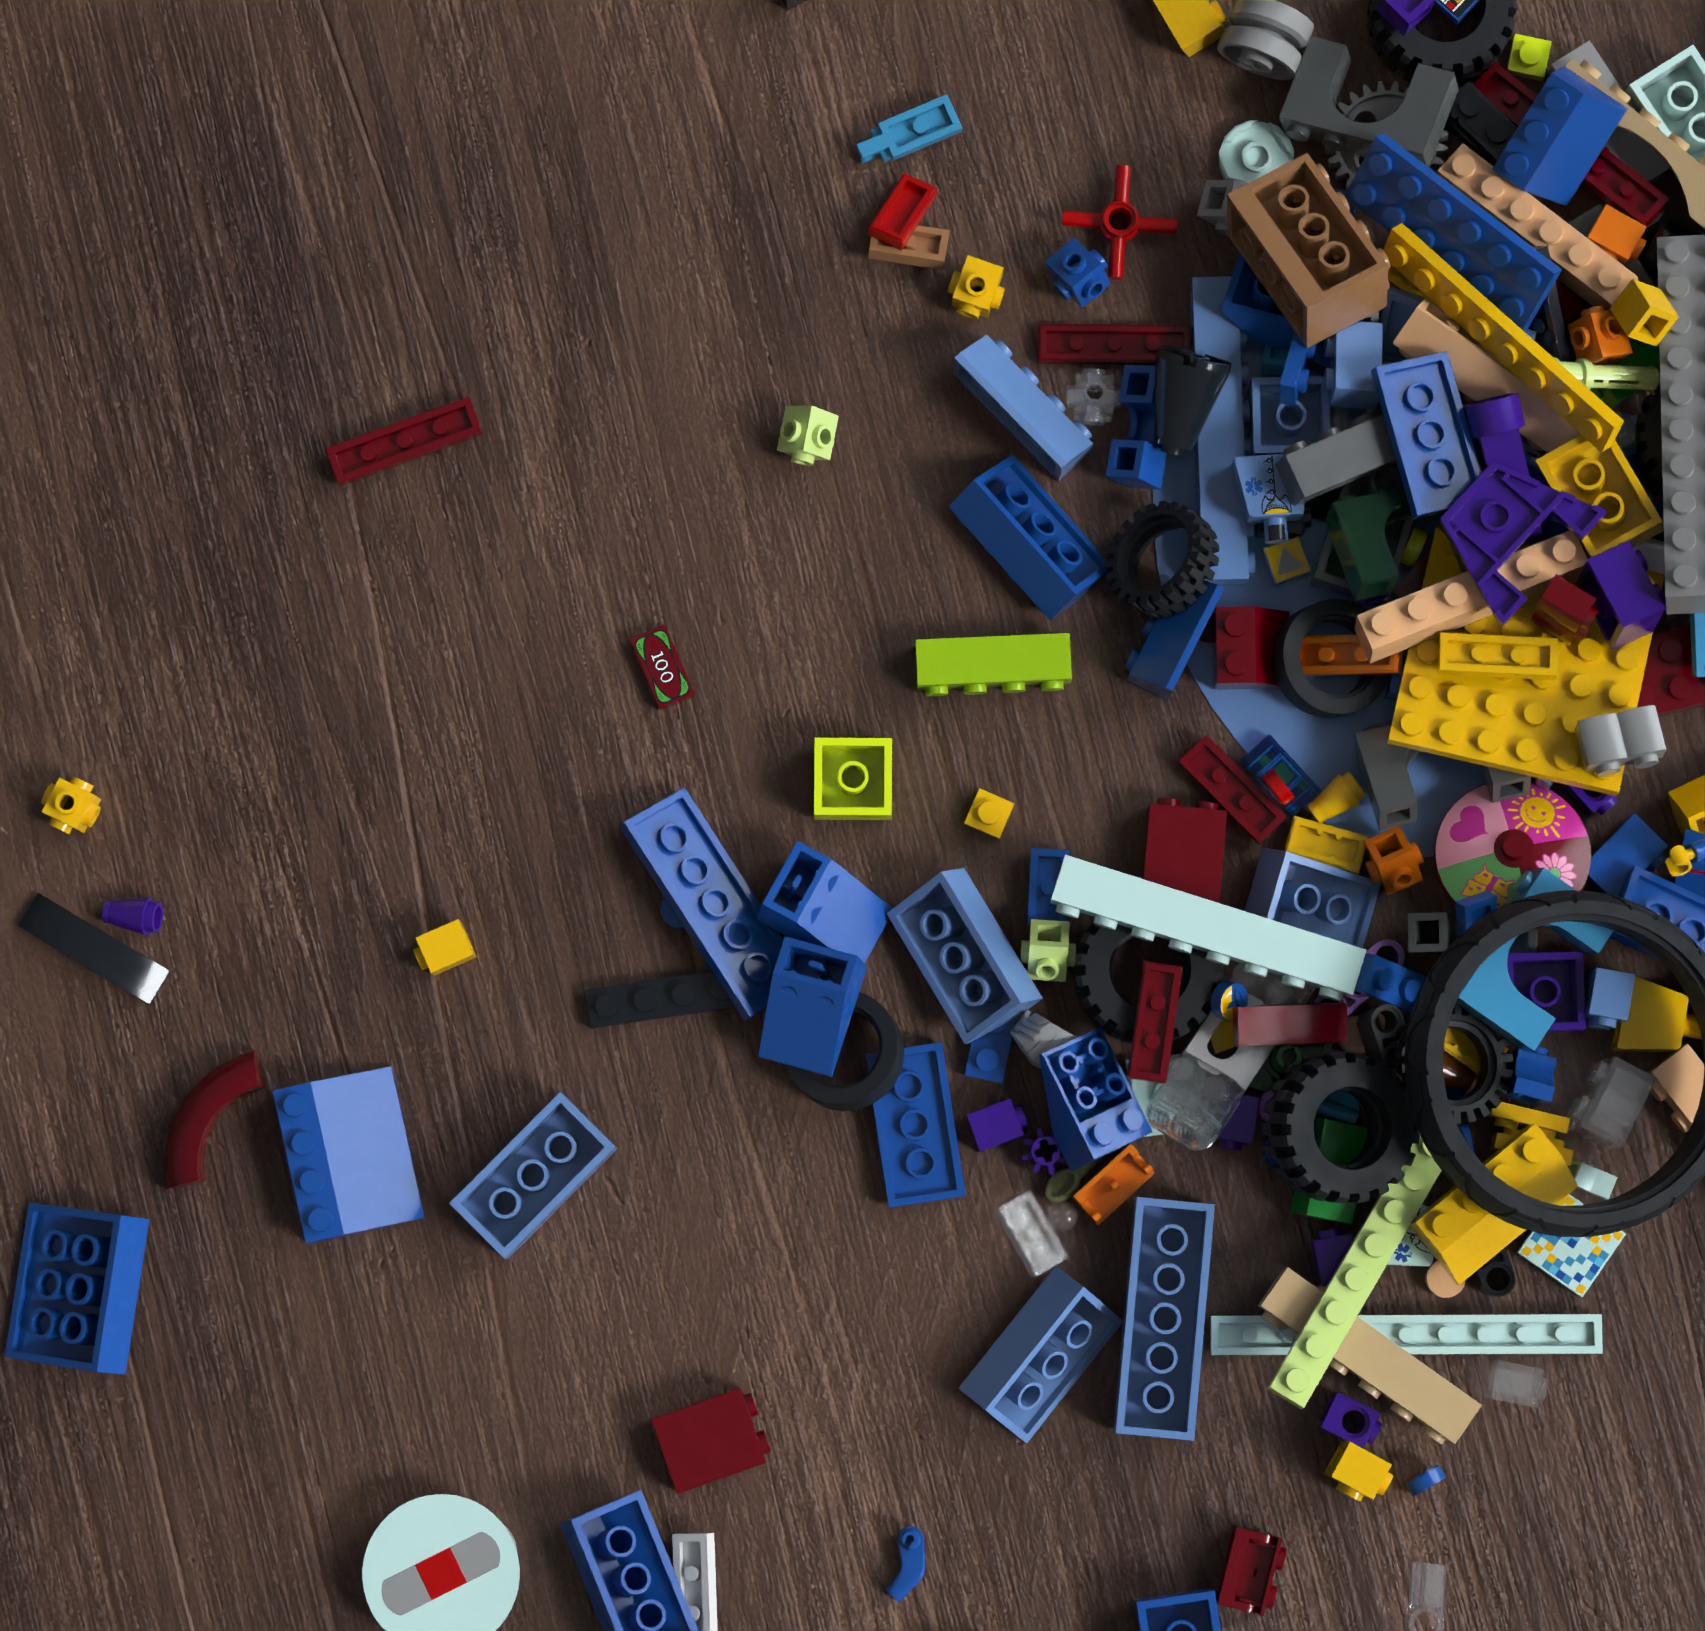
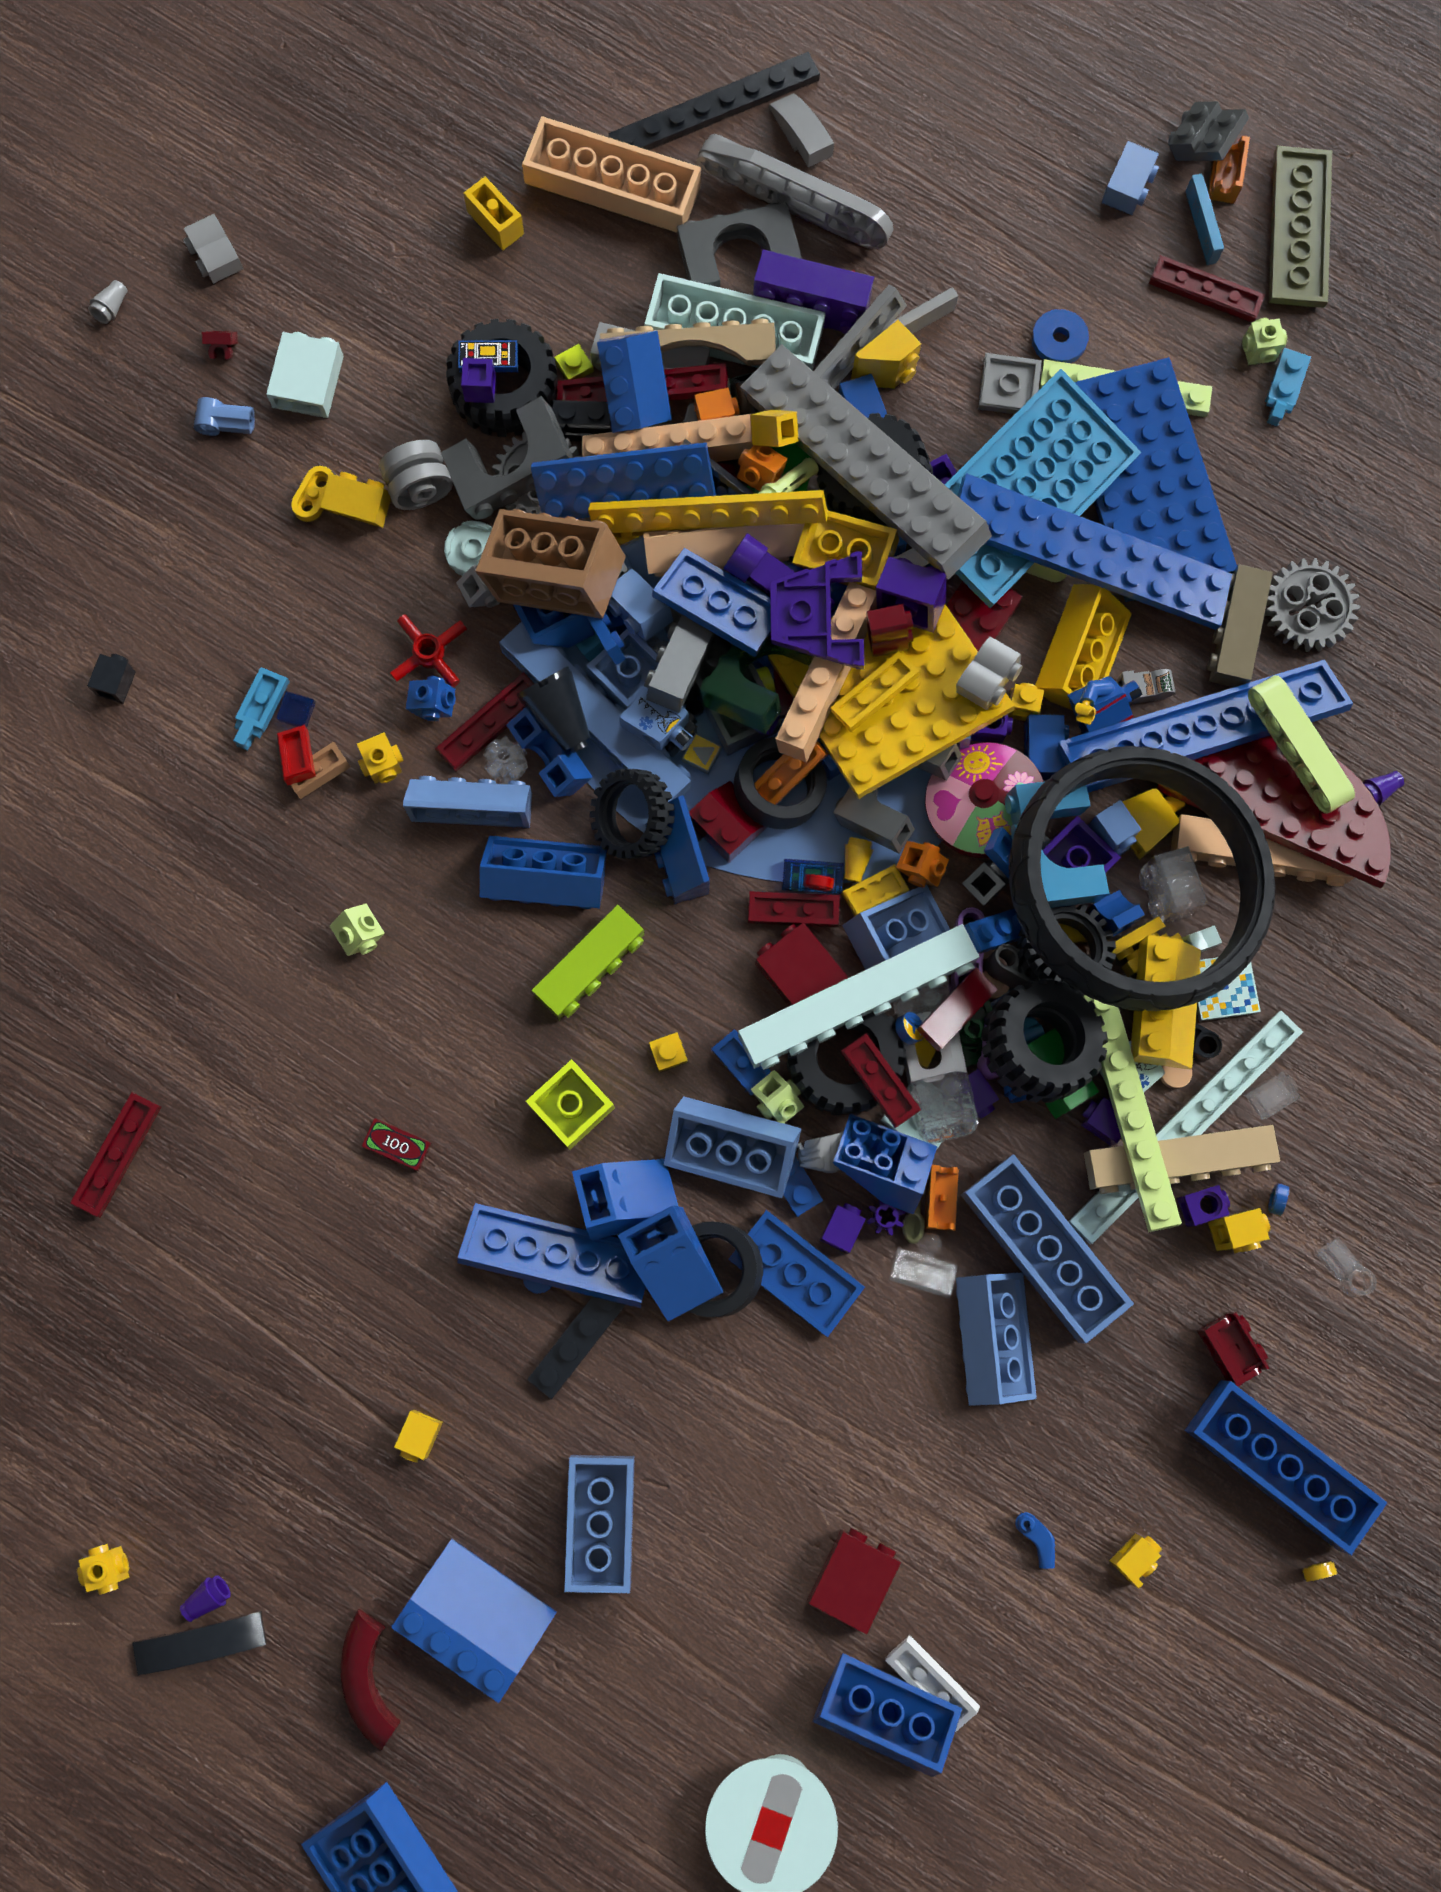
camera: 50 degrees left, 5 degrees down
(942, 165) = (295, 709): none -> clear blue tile
(1645, 796) = (1025, 698): none -> yellow brick

